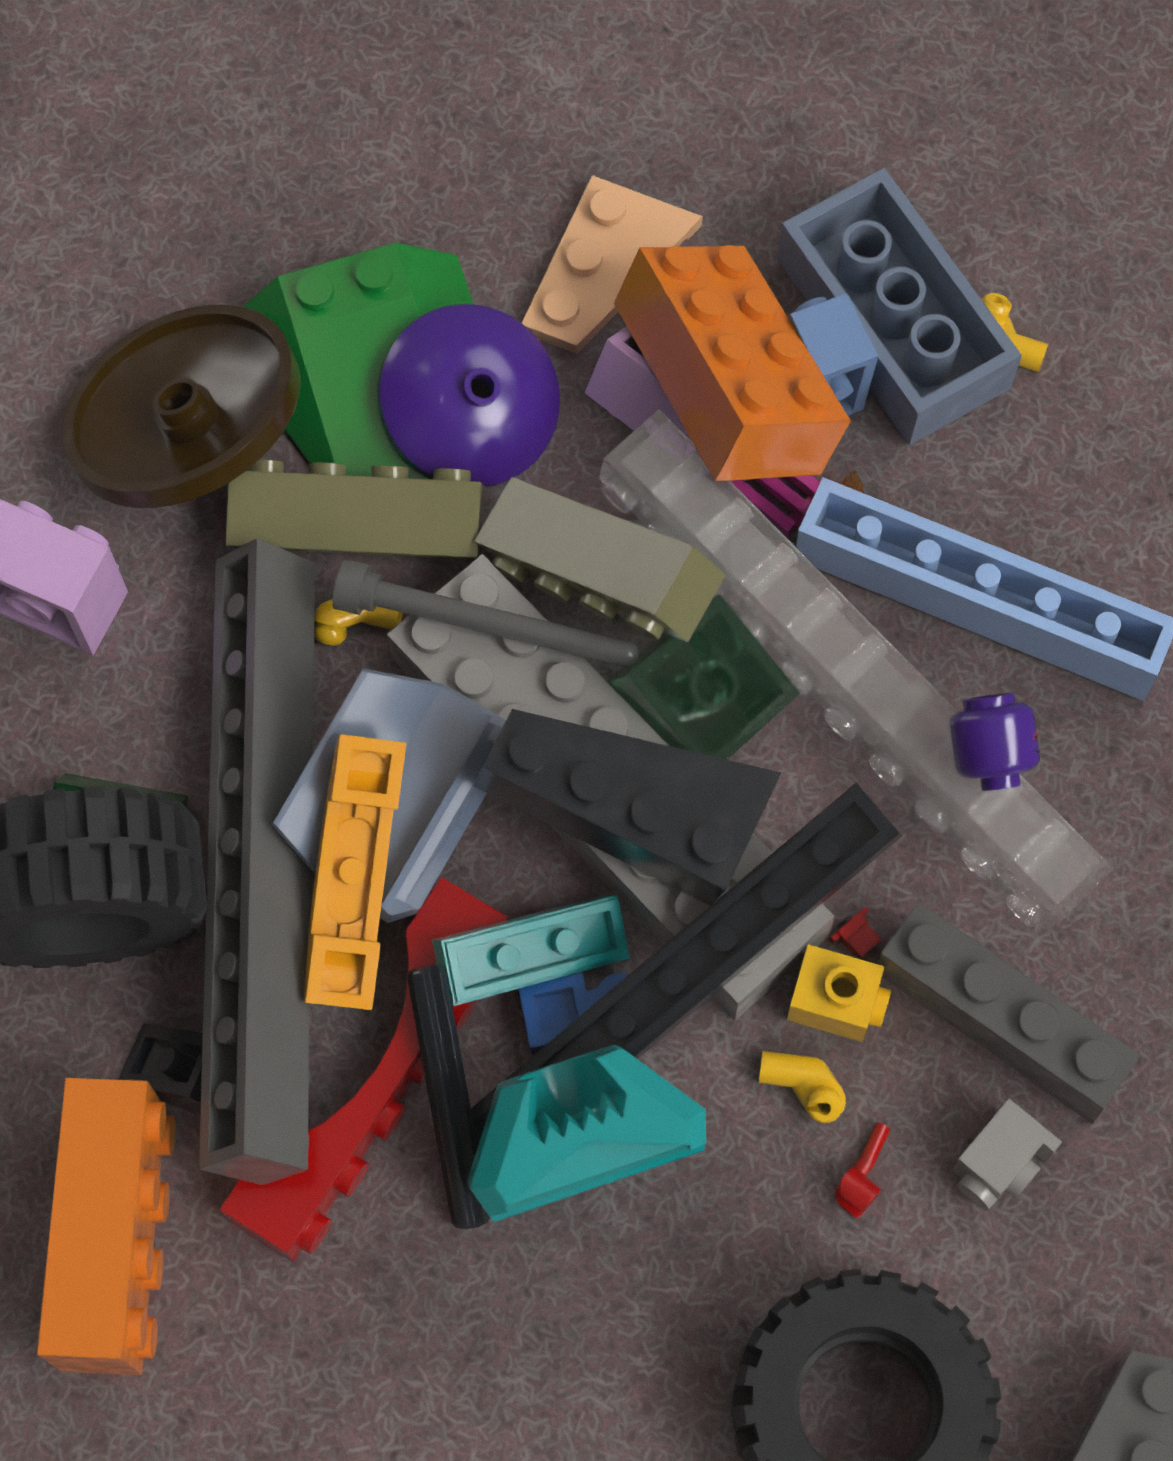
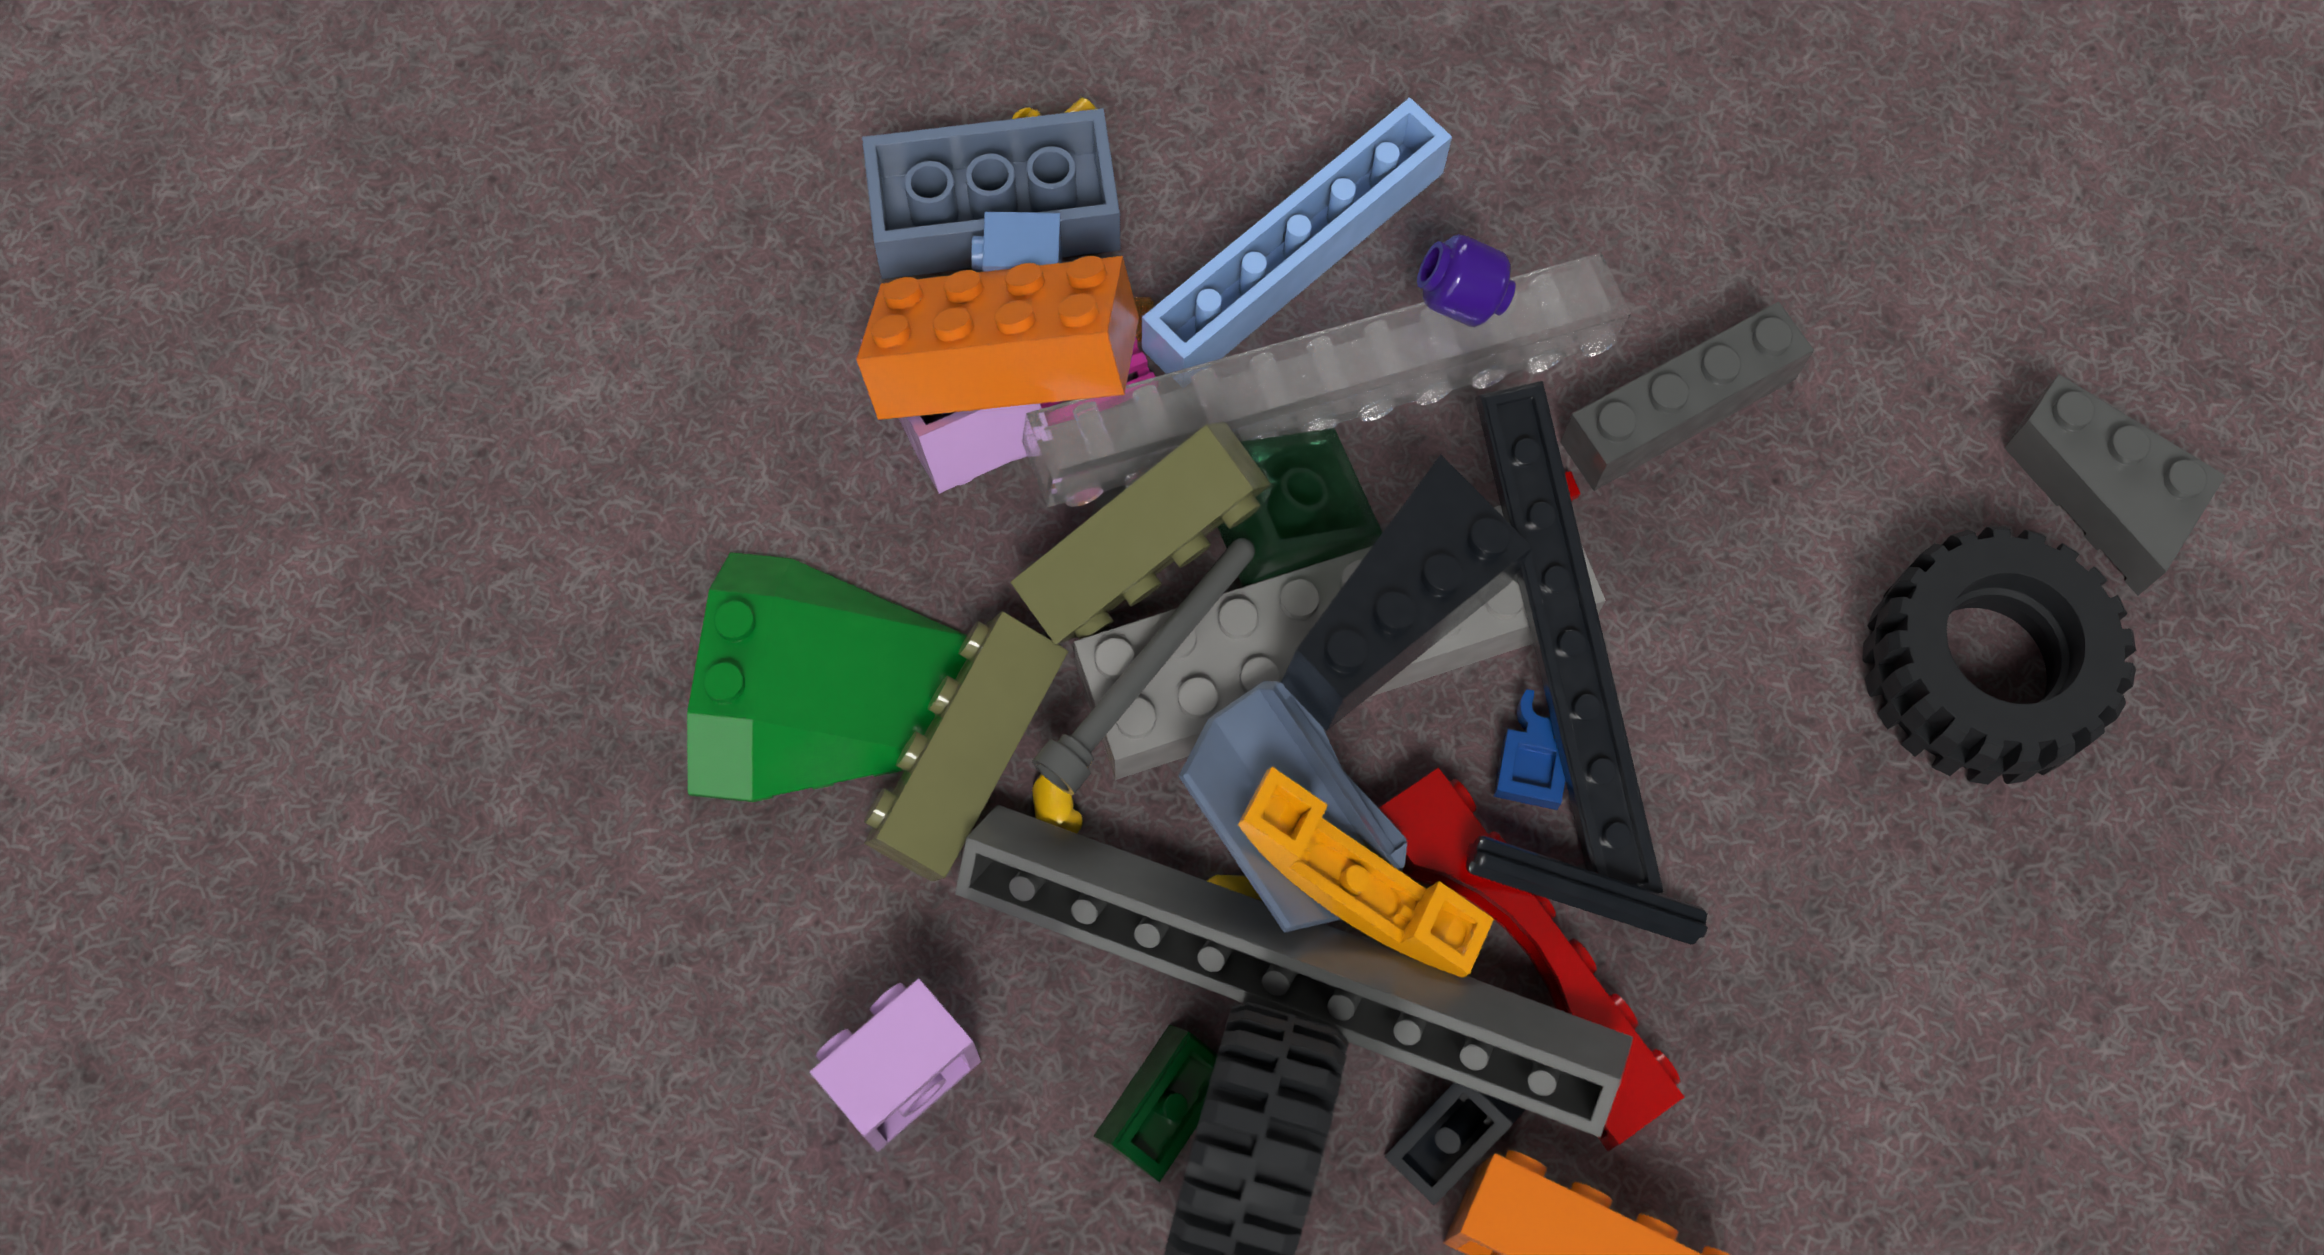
camera: 70 degrees left, 0 degrees up
(181, 406) = (776, 862): dark brown dish -> none
(437, 417) = (873, 616): dark purple dish -> none
(532, 948) = (1474, 759): teal tile -> none
(579, 1130) = (1686, 779): teal helmet -> none
(595, 258) = (805, 426): light nougat wing -> none
(810, 1081) = (1678, 583): yellow arm -> none
(838, 994) = (1617, 522): yellow brick -> none
(855, 1189) = (1785, 588): red hand -> none
(1002, 1156) = (1808, 454): light grey brick -> none

